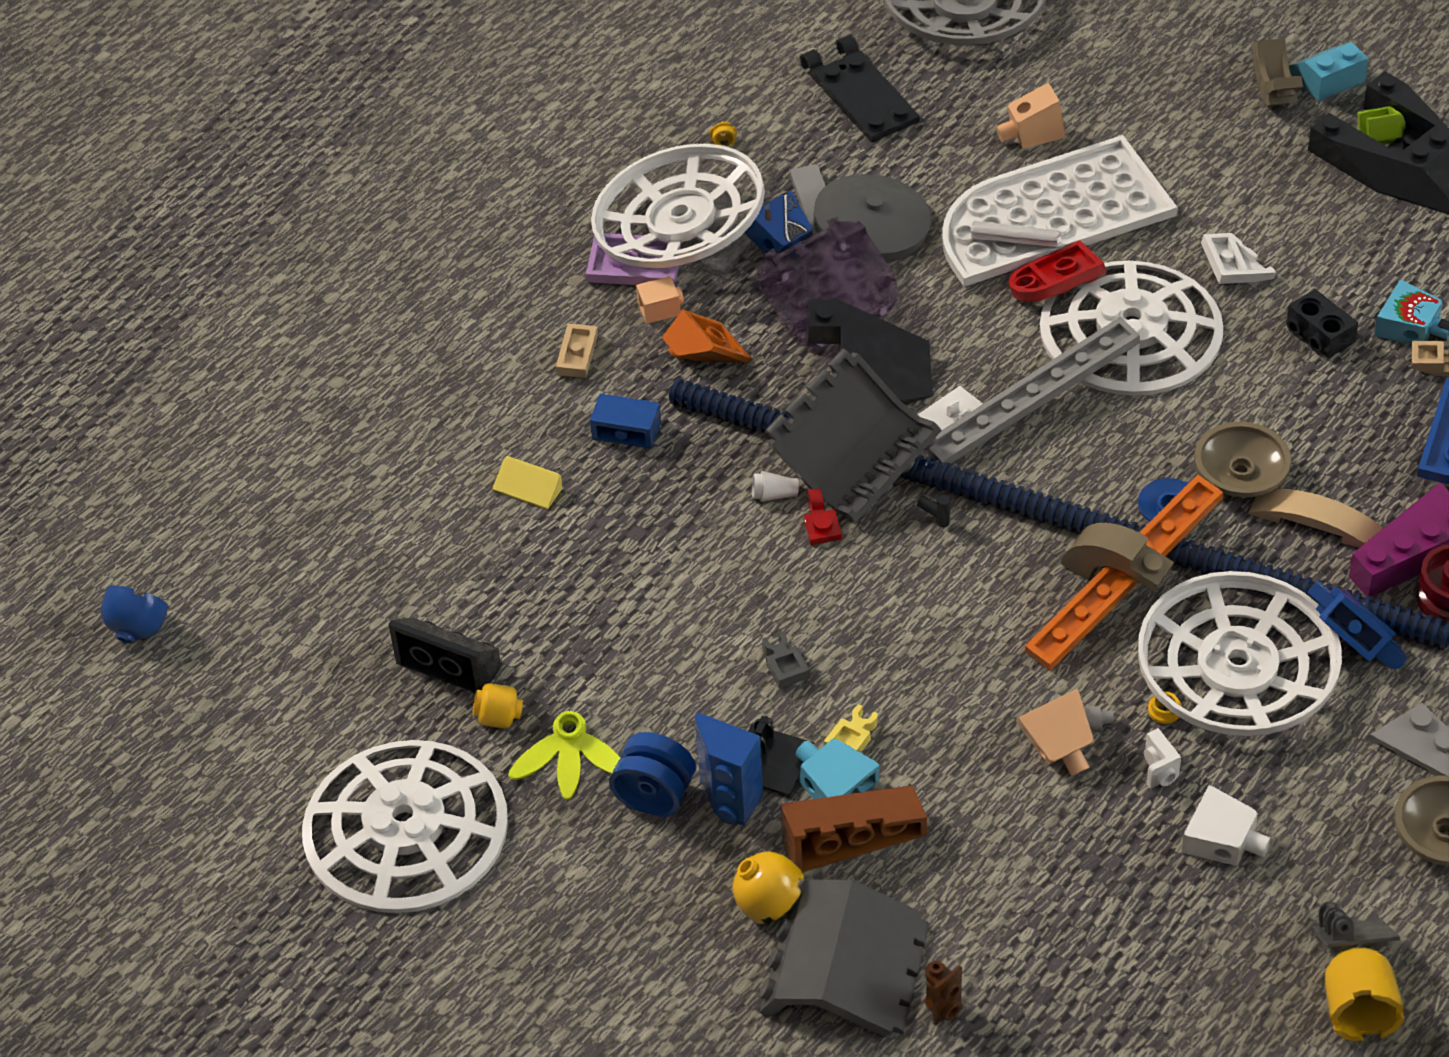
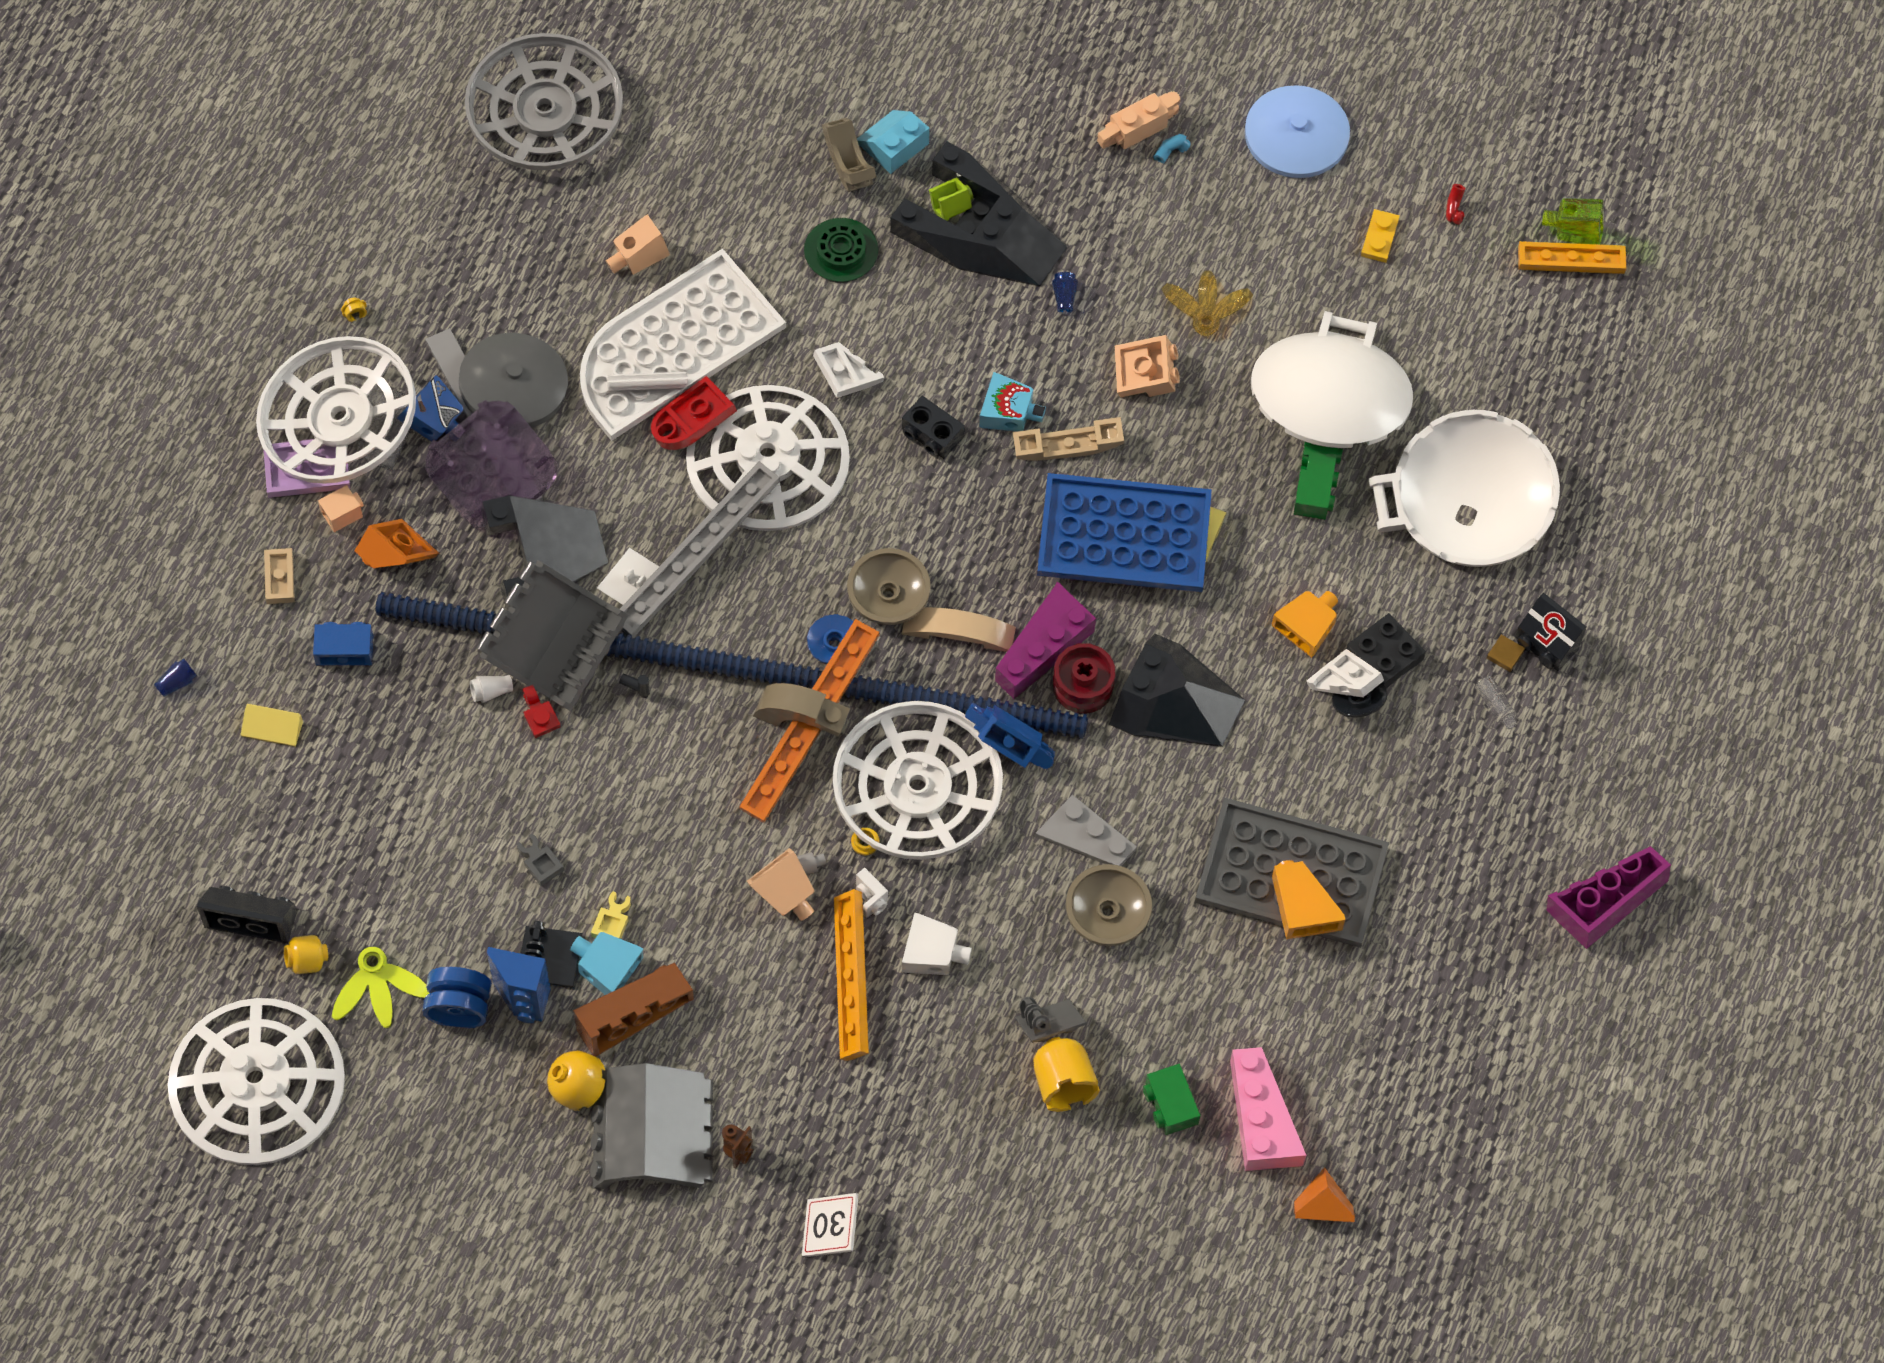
camera: 20 degrees left, 15 degrees up
(440, 423) = (176, 677): none -> clear blue cone
(861, 91) = (471, 235): black hinge -> none
(1119, 842) = (851, 975): none -> light orange plate
(1251, 157) = (841, 243): none -> dark green wheel

